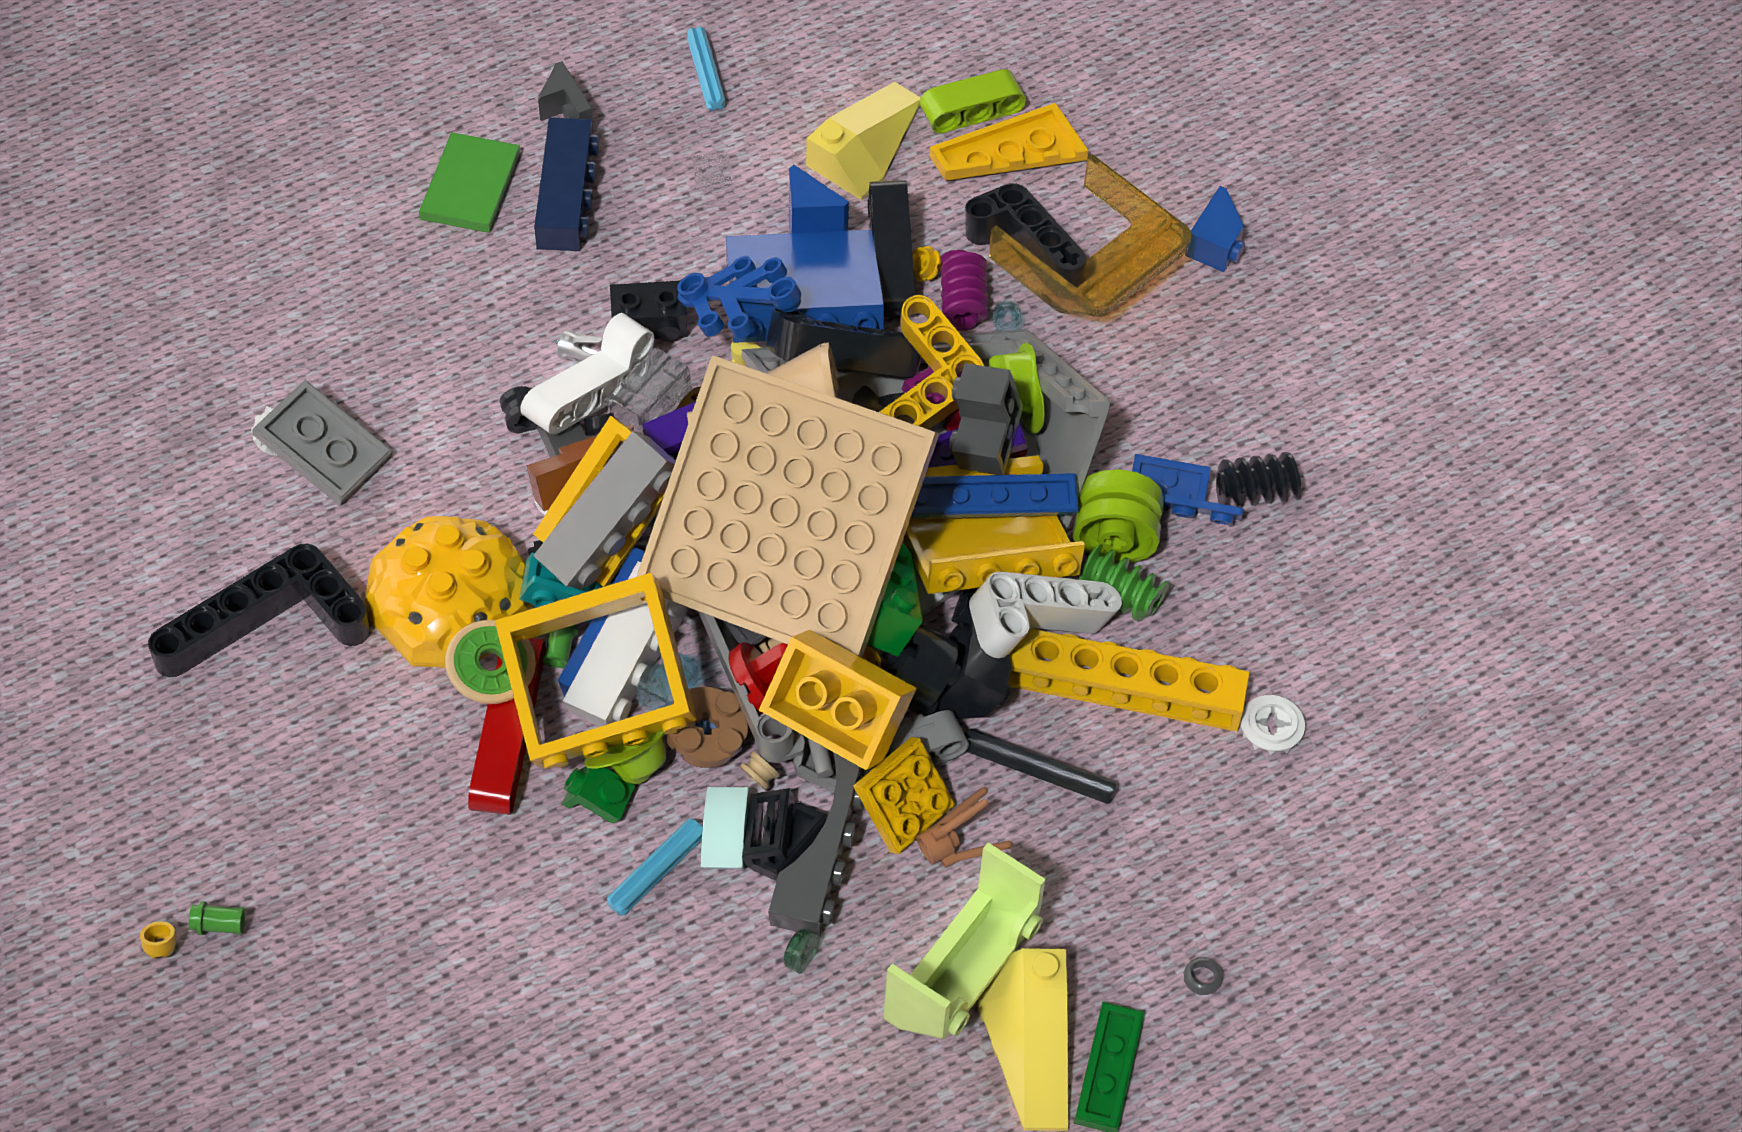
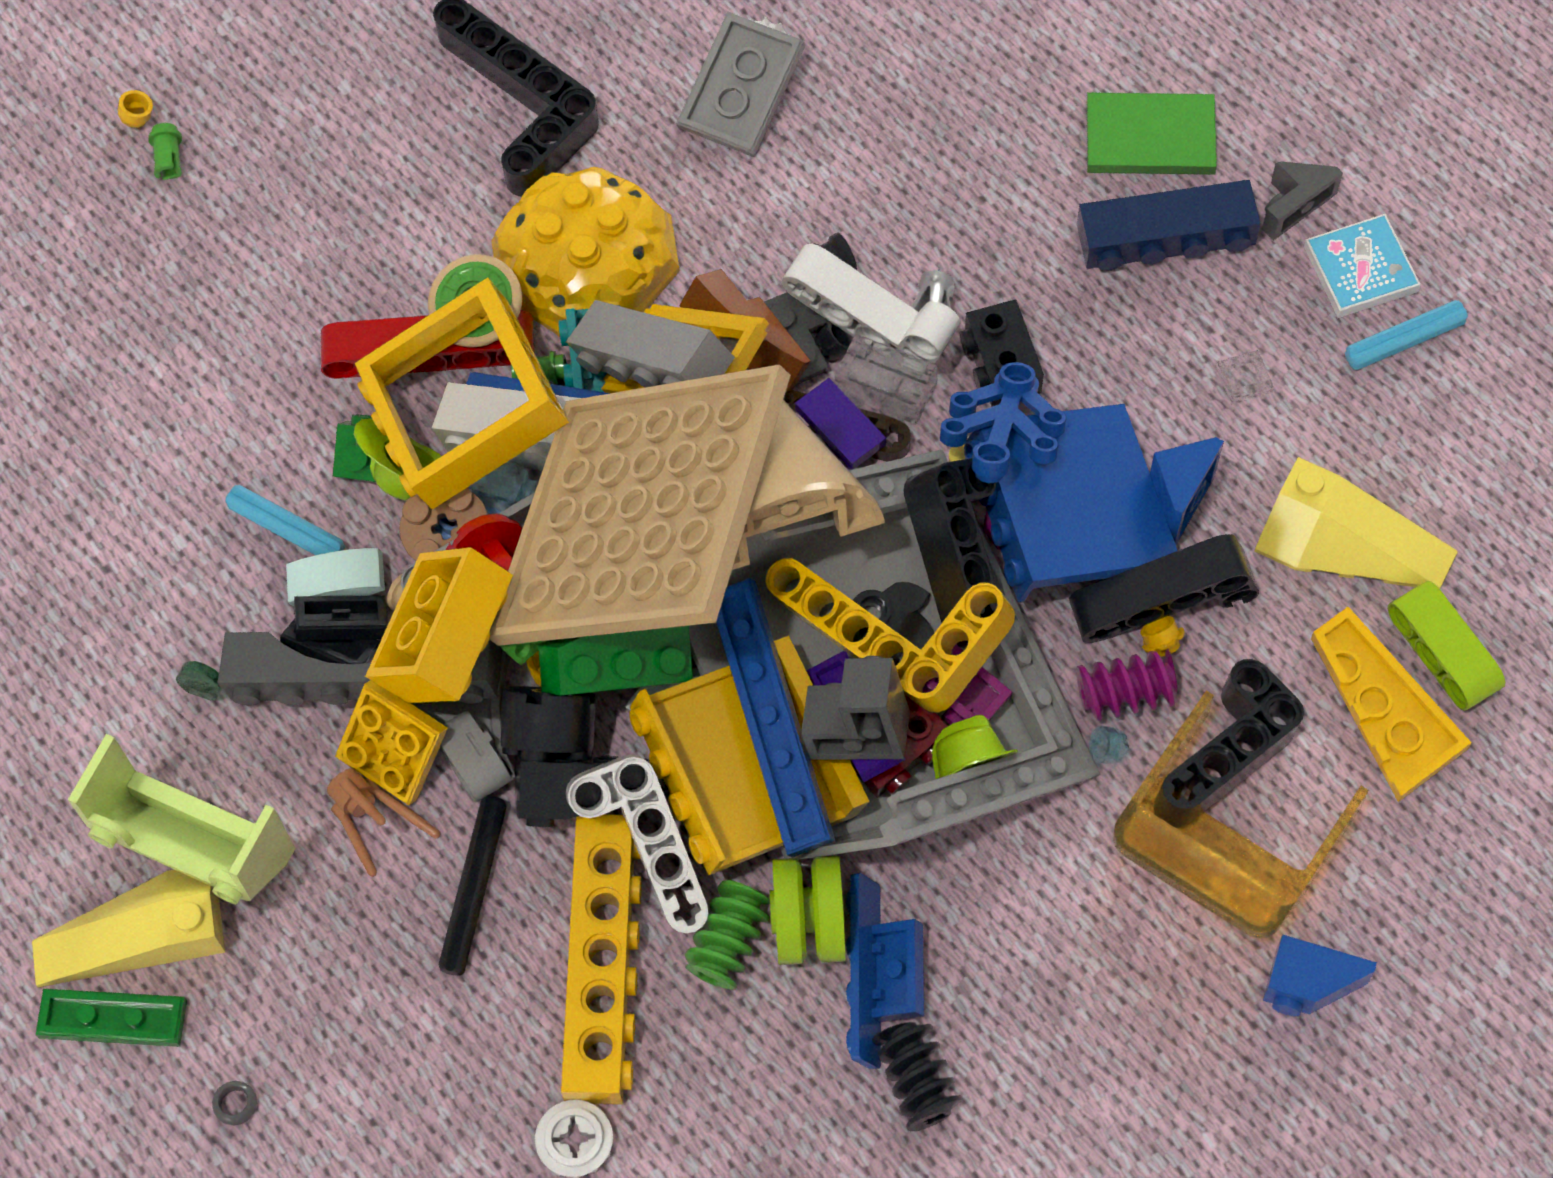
camera: 85 degrees right, 10 degrees up
(636, 81) = (1361, 265): none -> tile

